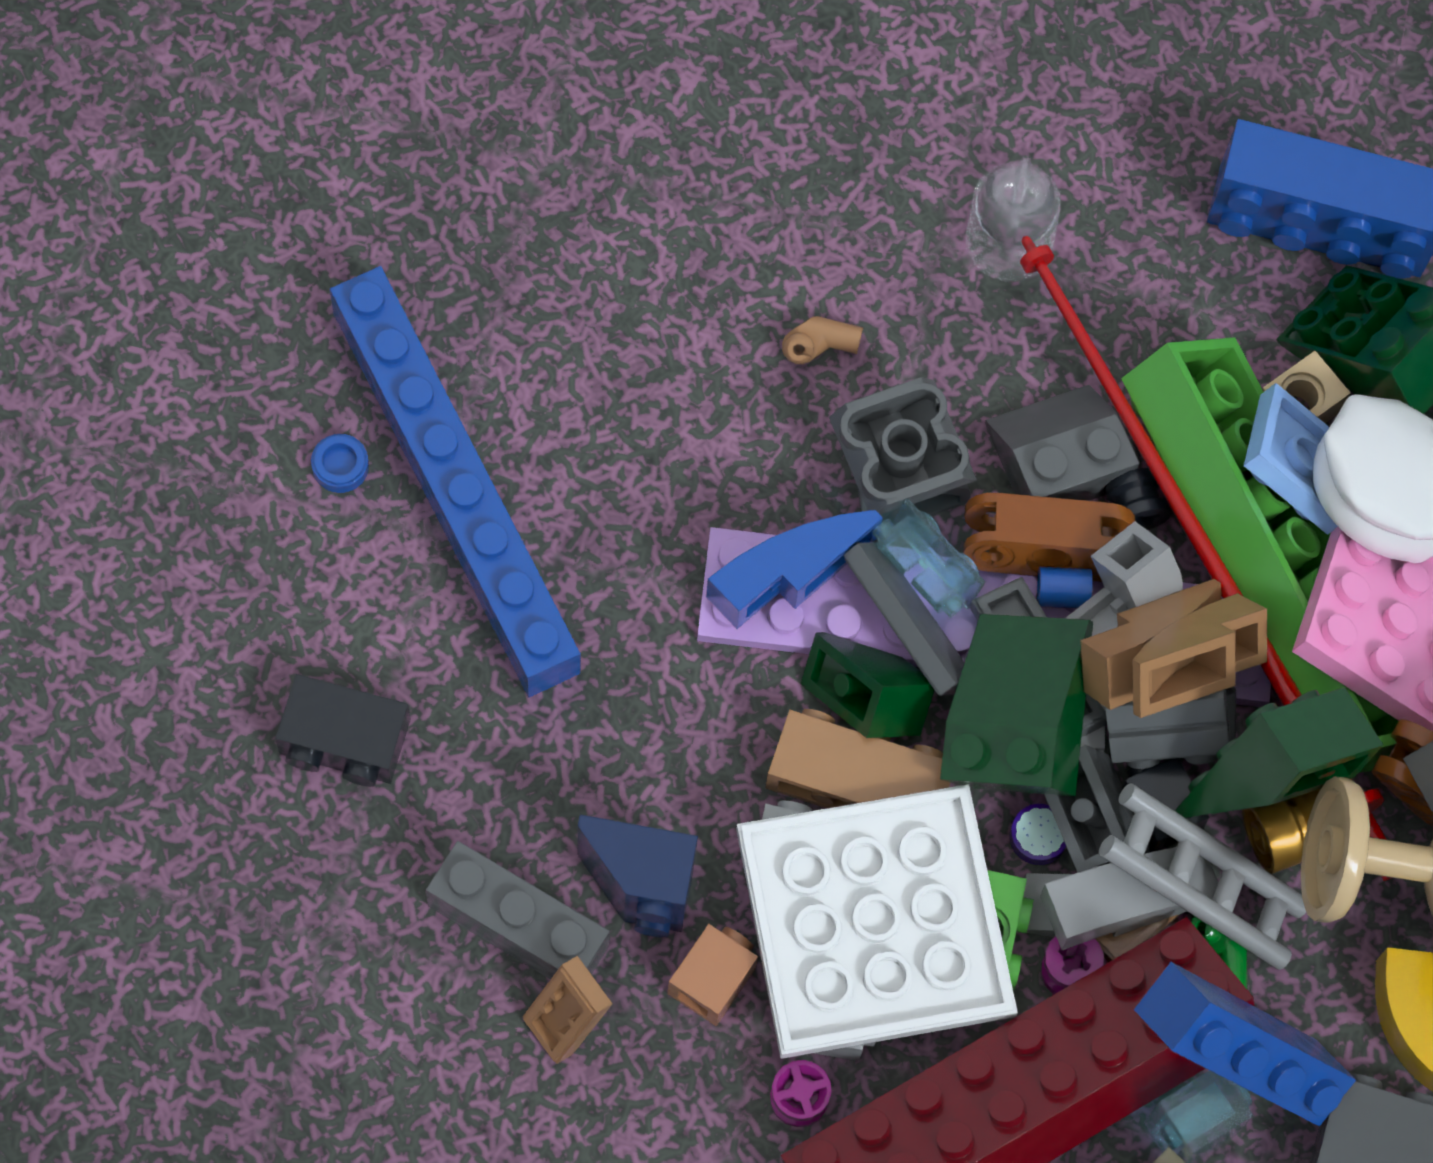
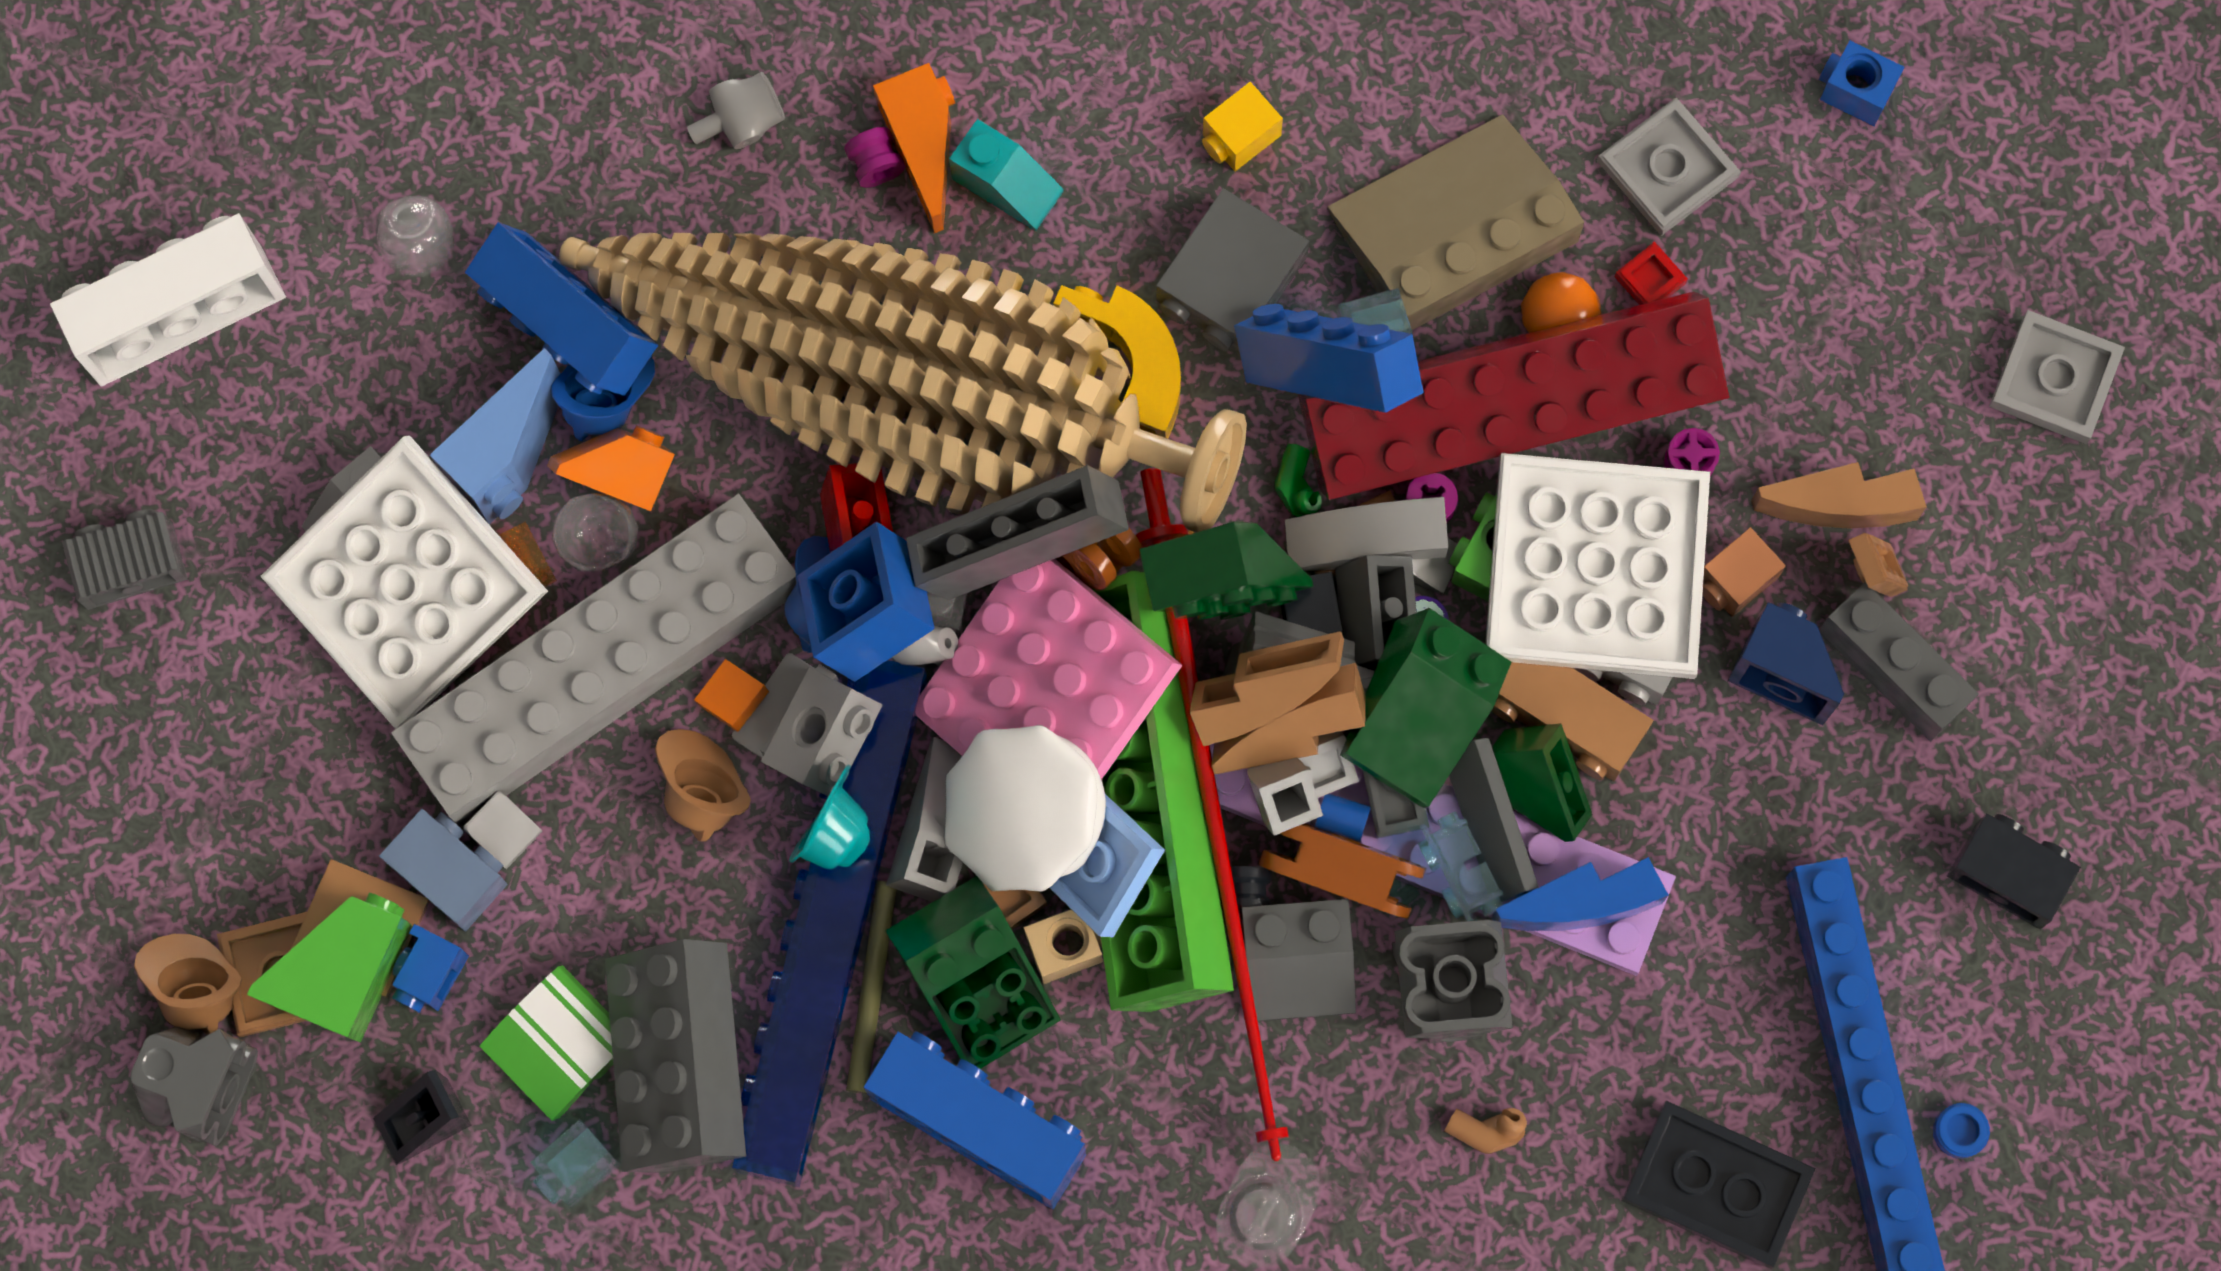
camera: 155 degrees left, 5 degrees up
(575, 343) = (1718, 1184): none -> black plate
(625, 1085) = (1843, 499): none -> medium nougat slope
(1175, 881) = (1333, 520): light grey bar -> none

